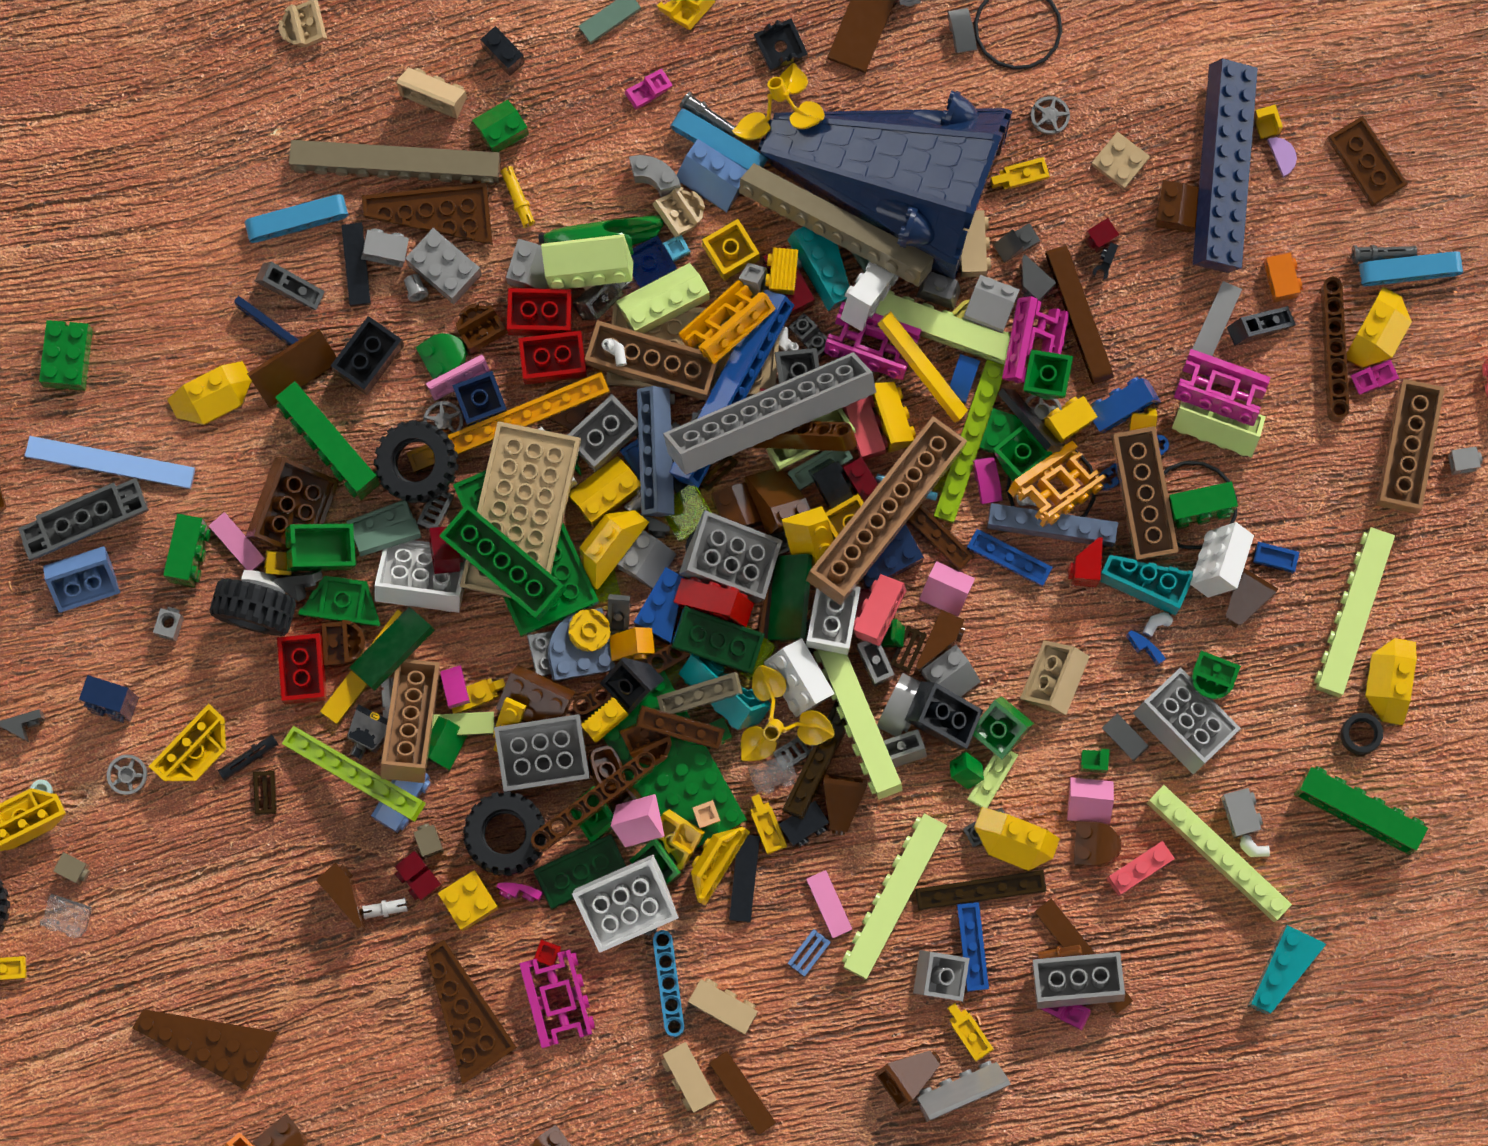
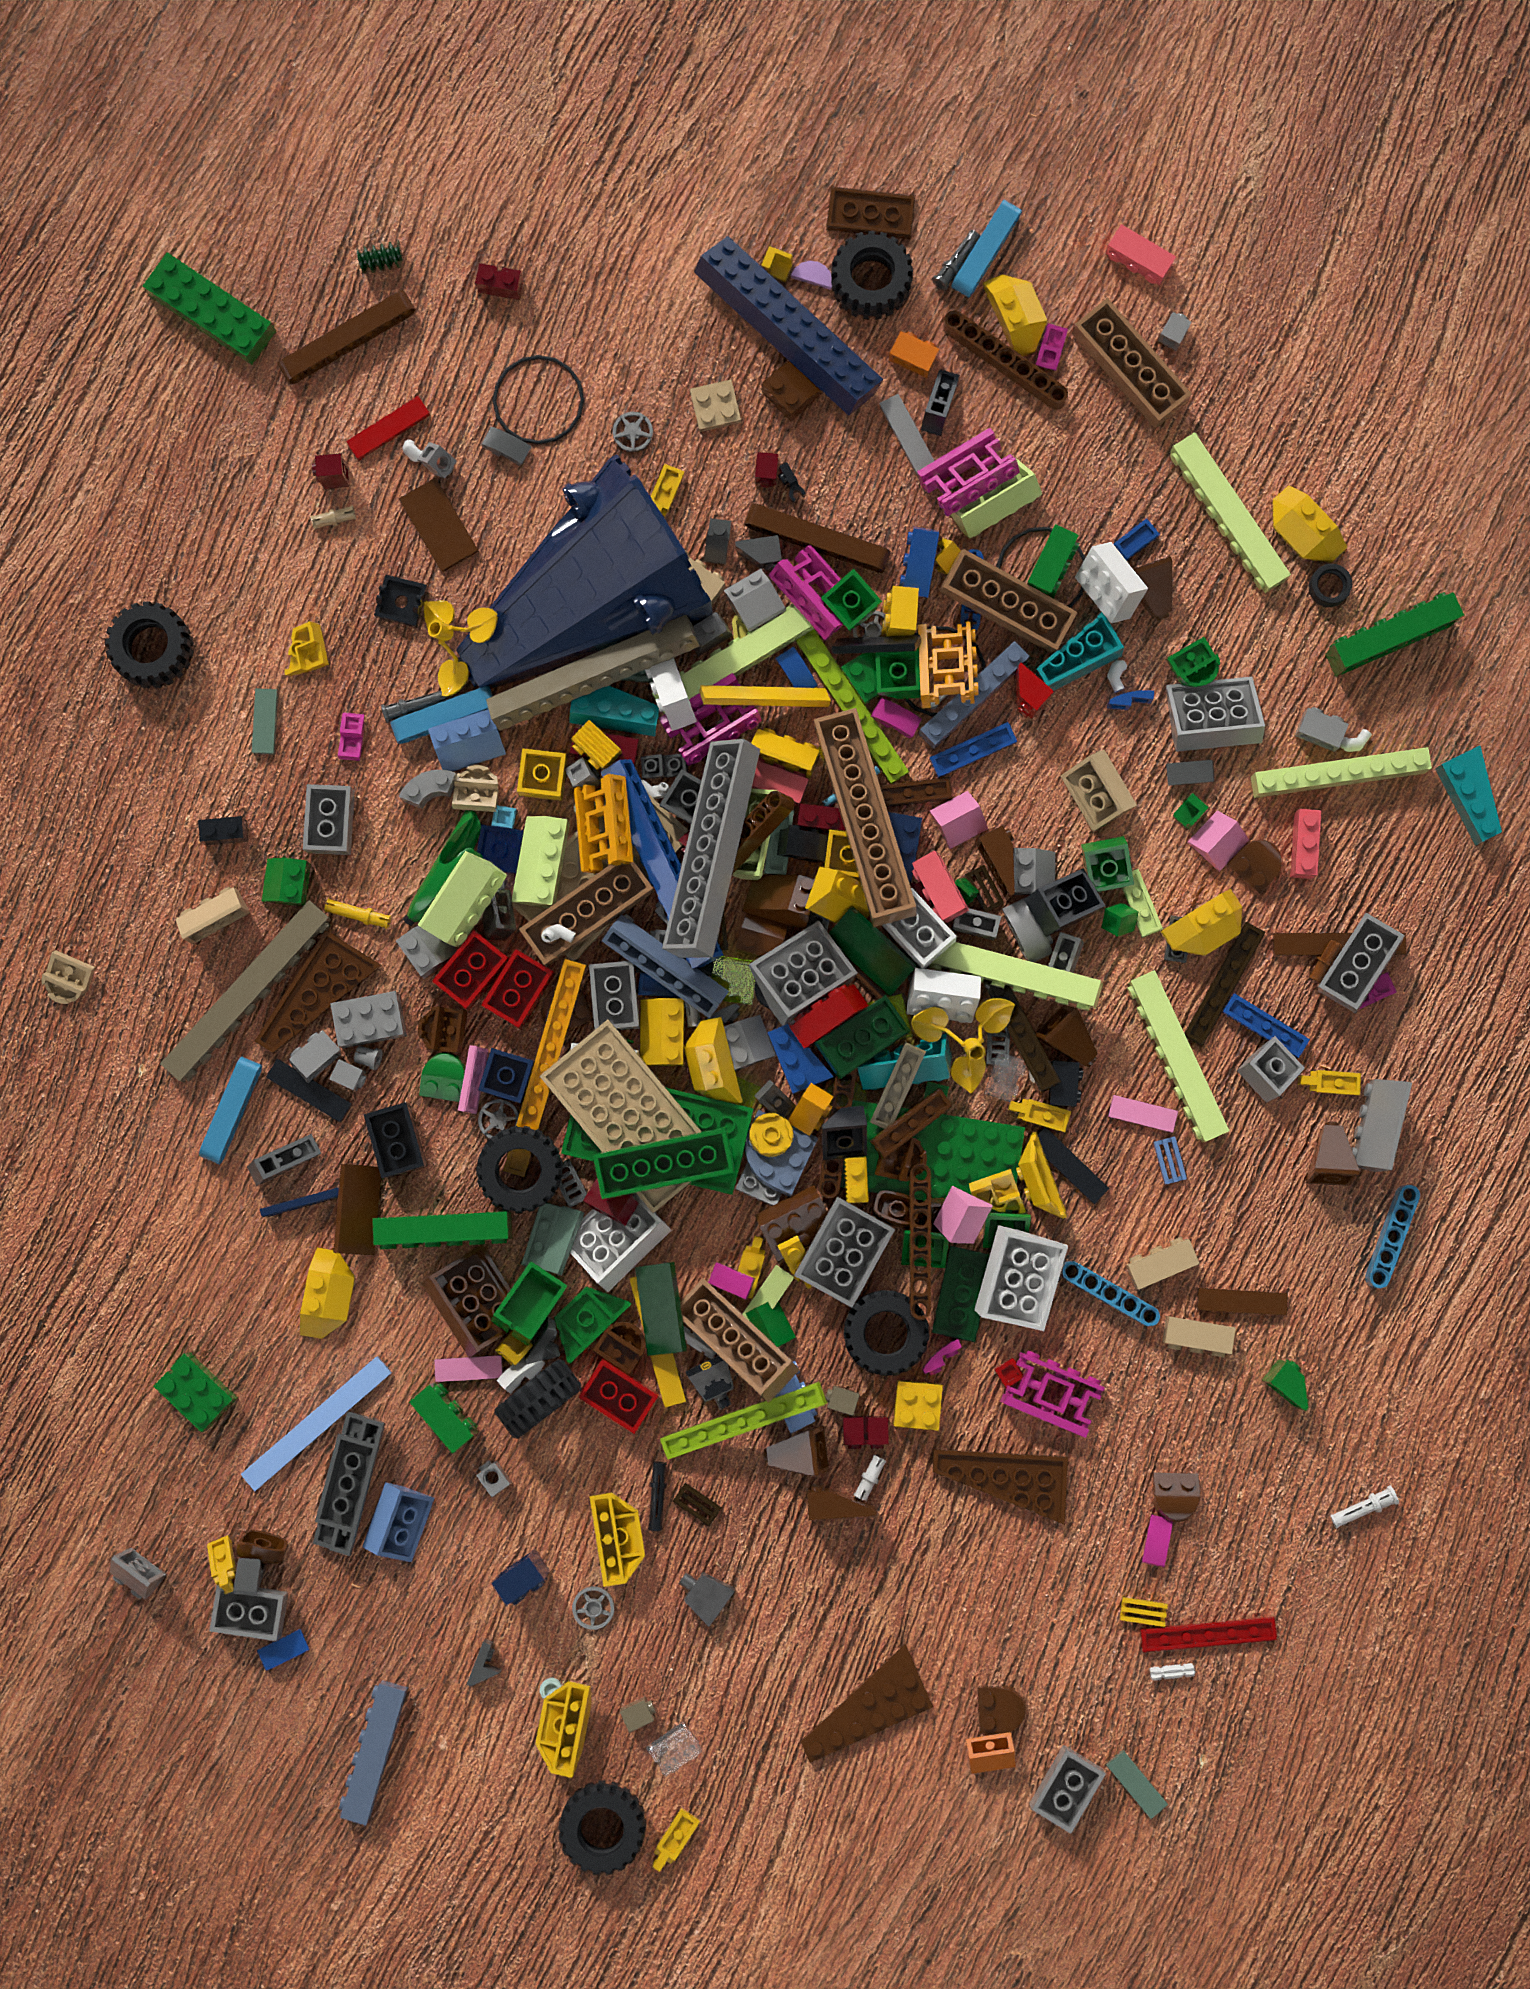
camera: 50 degrees left, 5 degrees up
(200, 851) = (706, 1595): none -> flat silver torso
(364, 839) = (800, 1453): none -> slope
(389, 283) = (348, 1075): none -> light grey brick
(571, 120) = (328, 819): none -> light grey brick
(706, 814) = (997, 1156): light nougat plate -> none
(1319, 172) = (878, 249): none -> black tyre

